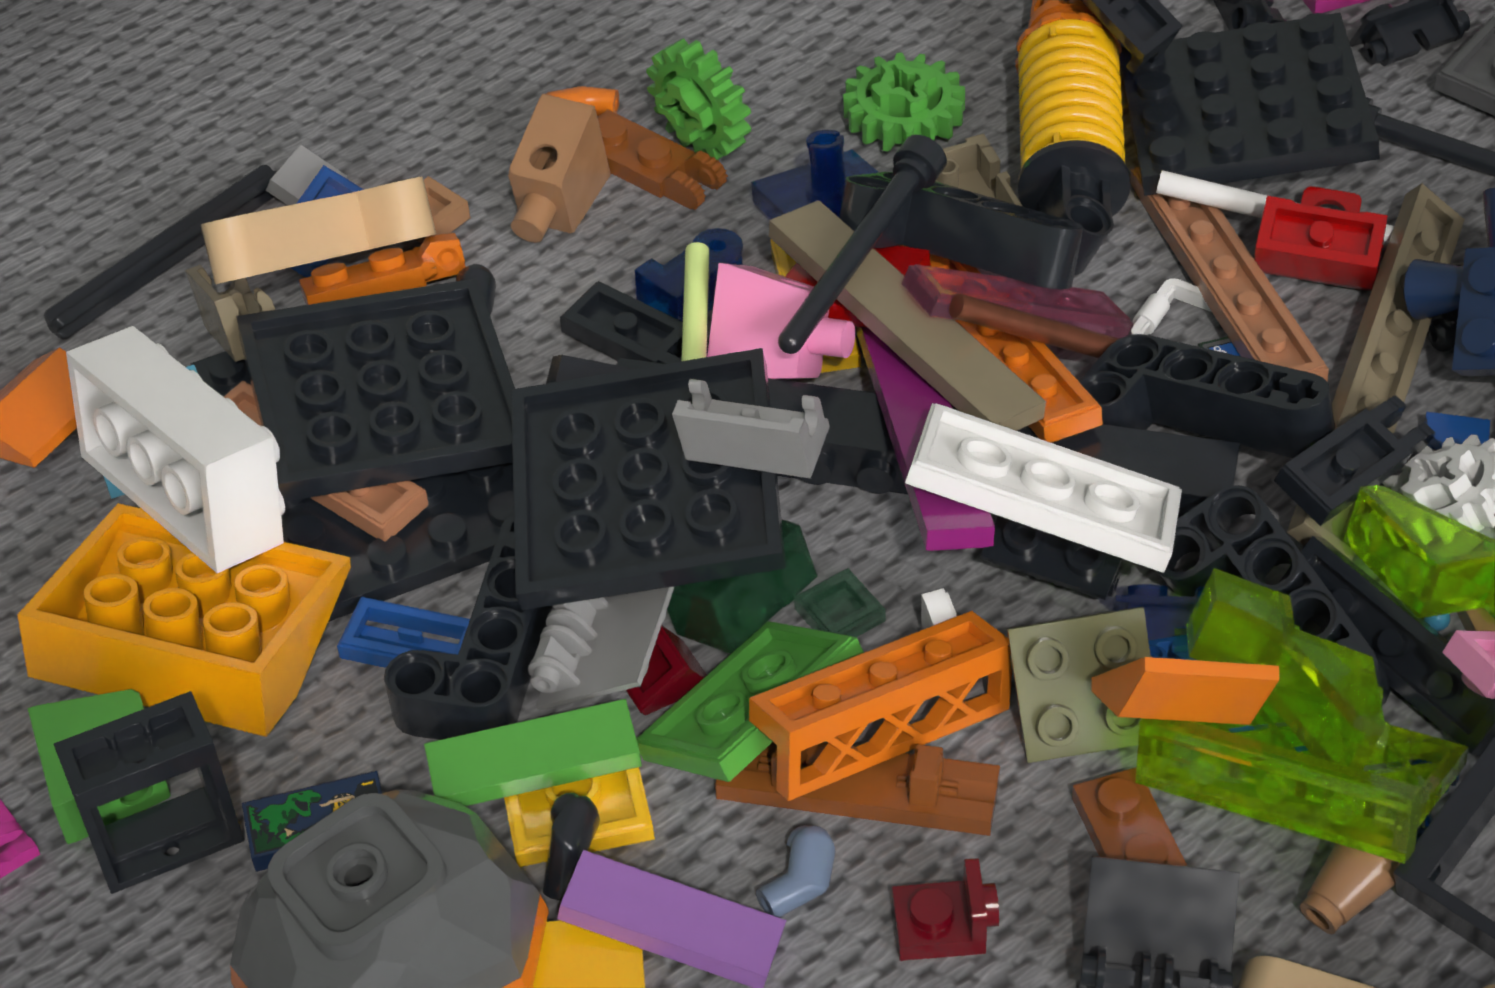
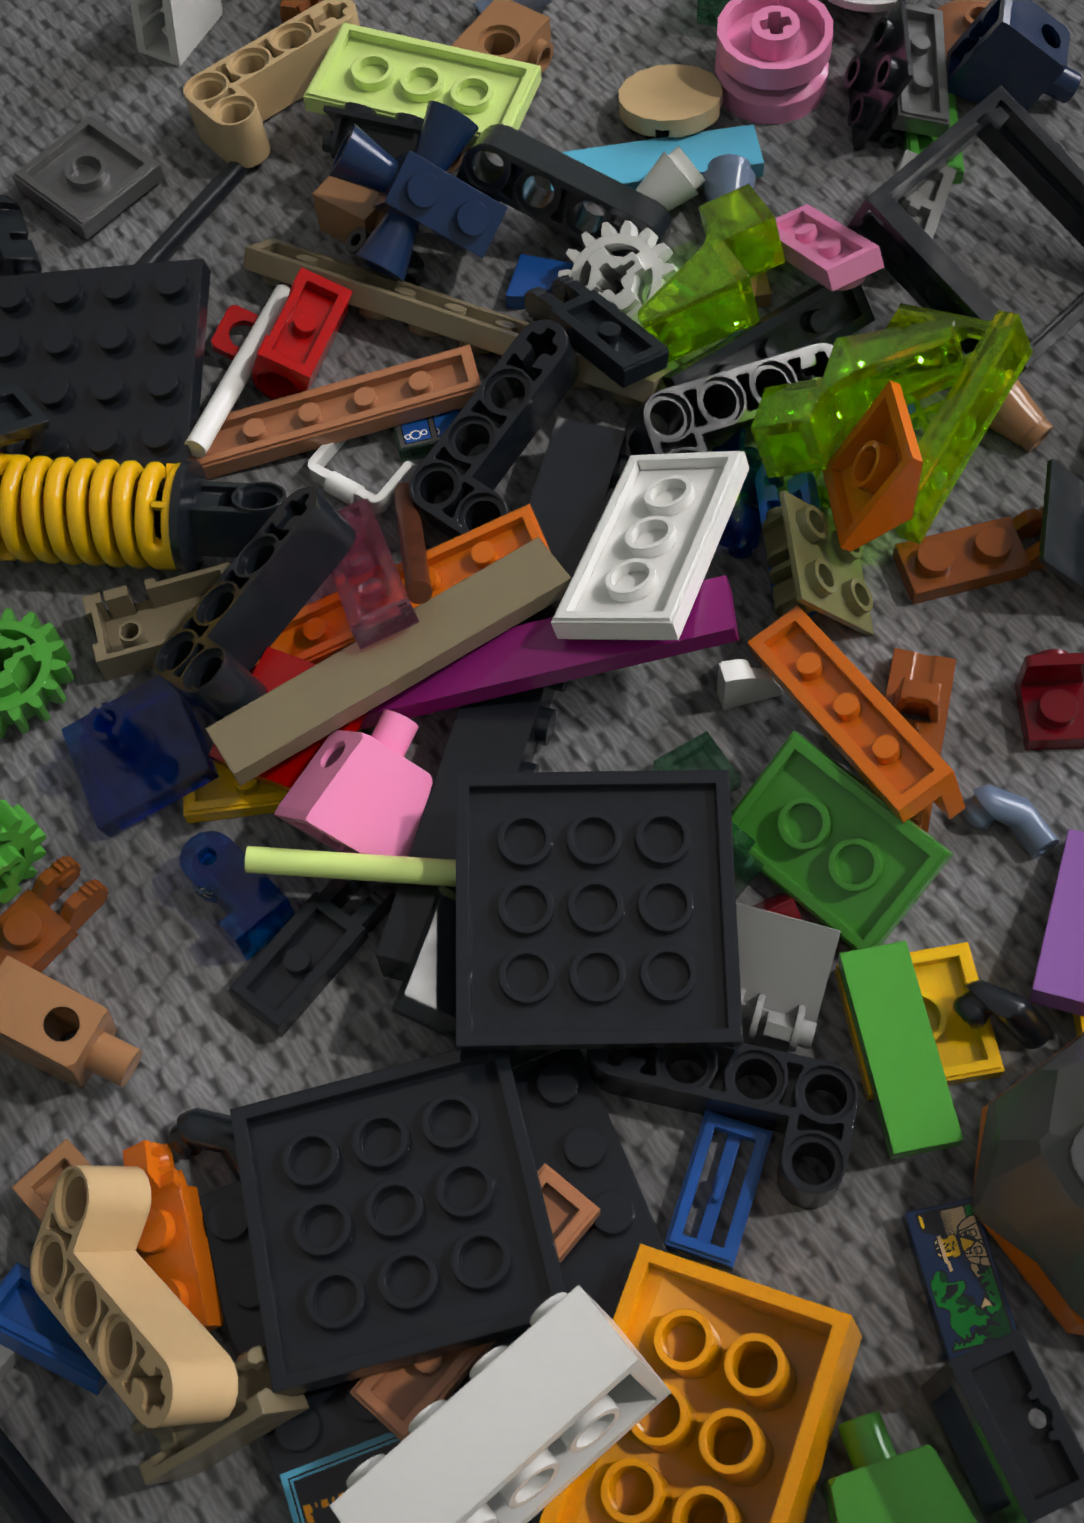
camera: 85 degrees left, 15 degrees up
(750, 434) = (587, 776): light grey hinge -> none
(915, 167) = (199, 618): black piece -> none

